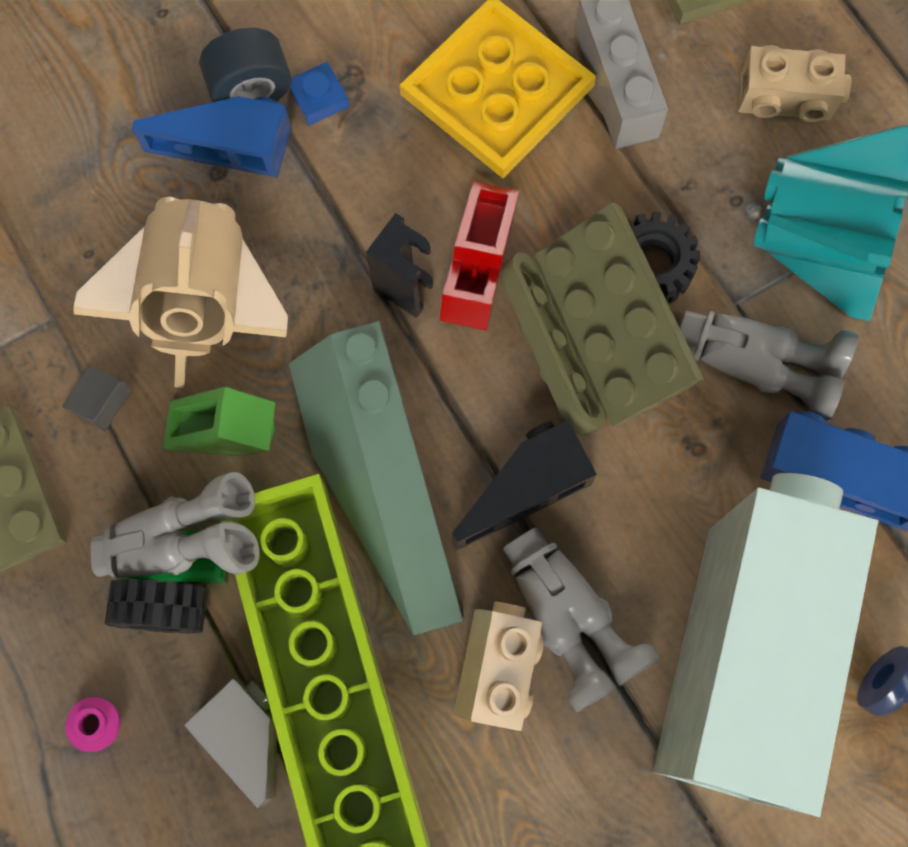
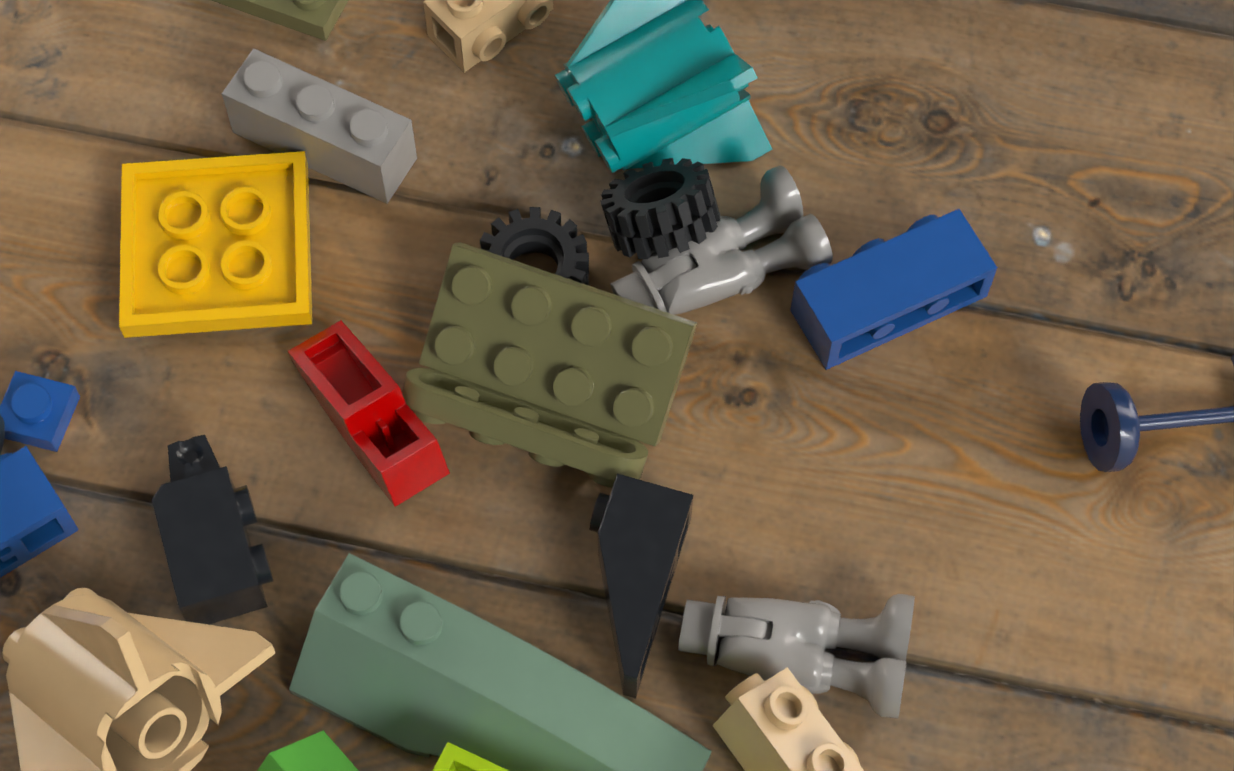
camera: 50 degrees left, 10 degrees down
(328, 242) = (207, 537): none -> black hinge
(393, 267) = (314, 498): black hinge -> none
(759, 293) = (660, 208): none -> black tyre
(769, 646) = (995, 488): light aqua brick -> none

